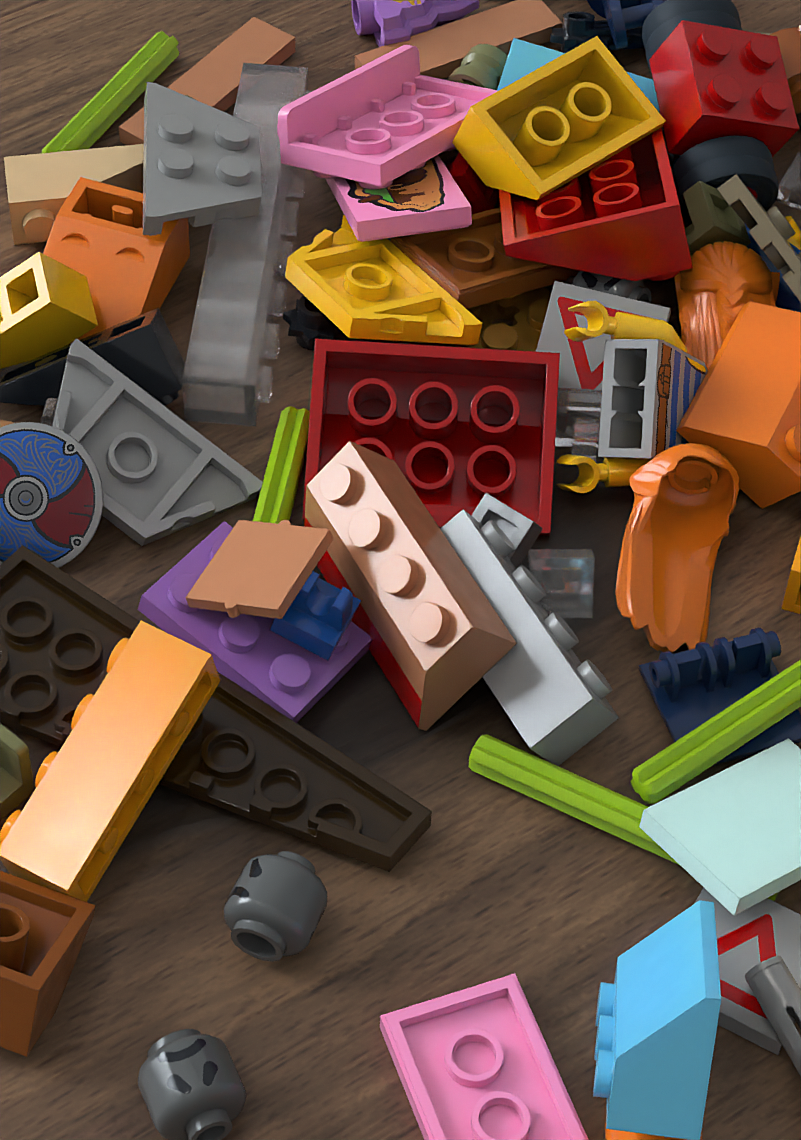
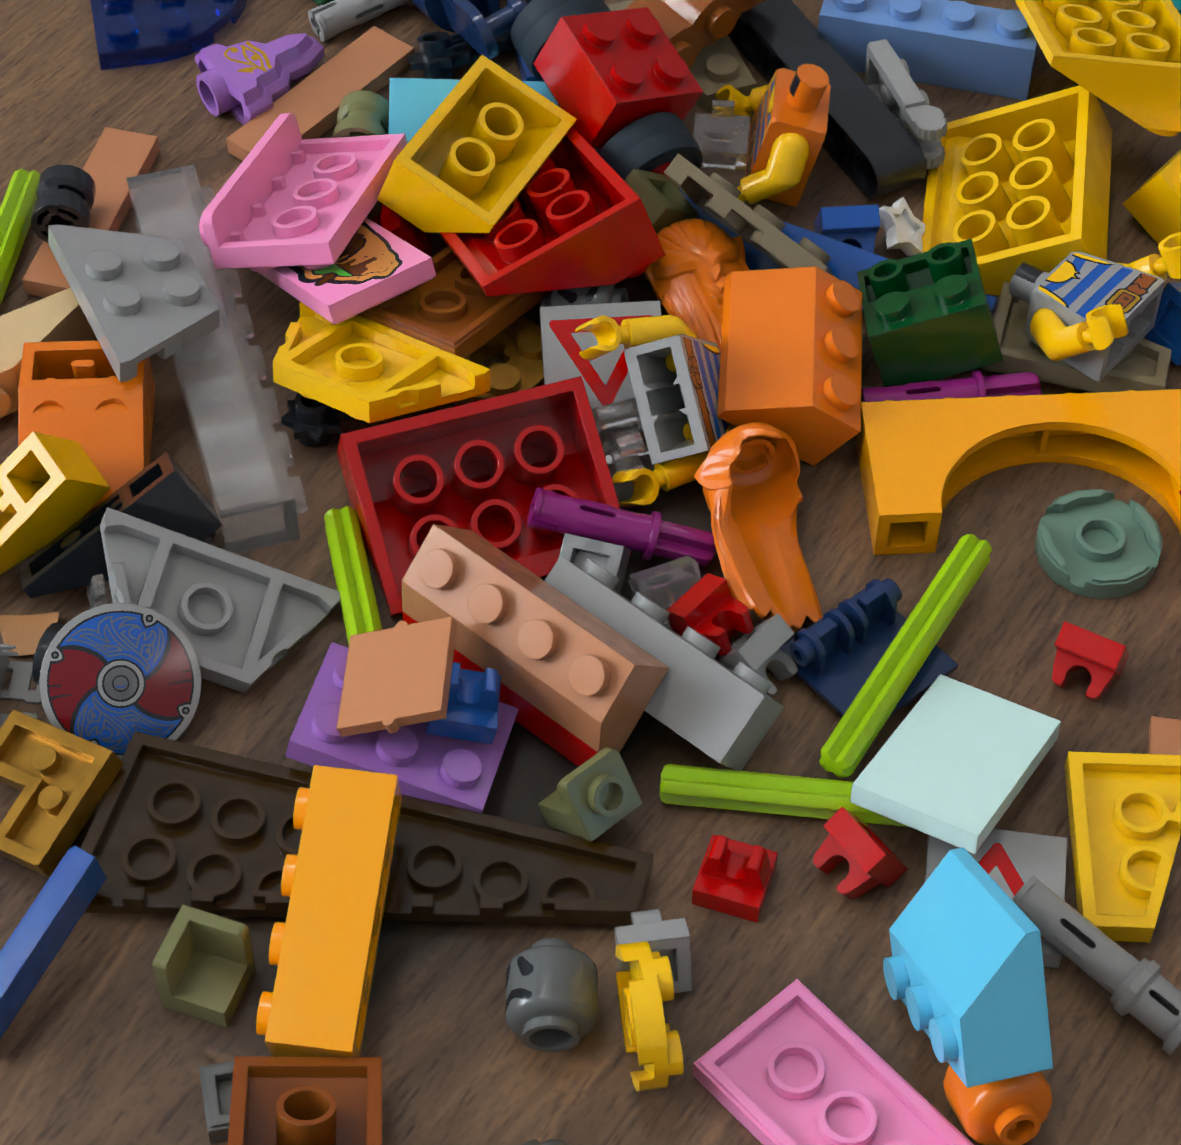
camera: 20 degrees left, 0 degrees up
(181, 65) = (63, 198): none -> black wheel
(342, 954) = (642, 1015): none -> yellow plate
(386, 903) = (667, 937): none -> light grey tile
(398, 738) = (592, 797): none -> olive bracket
(502, 860) = (734, 878): none -> red tile
(541, 504) = (620, 527): none -> magenta axle
(589, 610) = (711, 612): none -> red tile
(620, 660) = (761, 651): none -> light grey tile
(635, 878) = (867, 855): none -> red tile

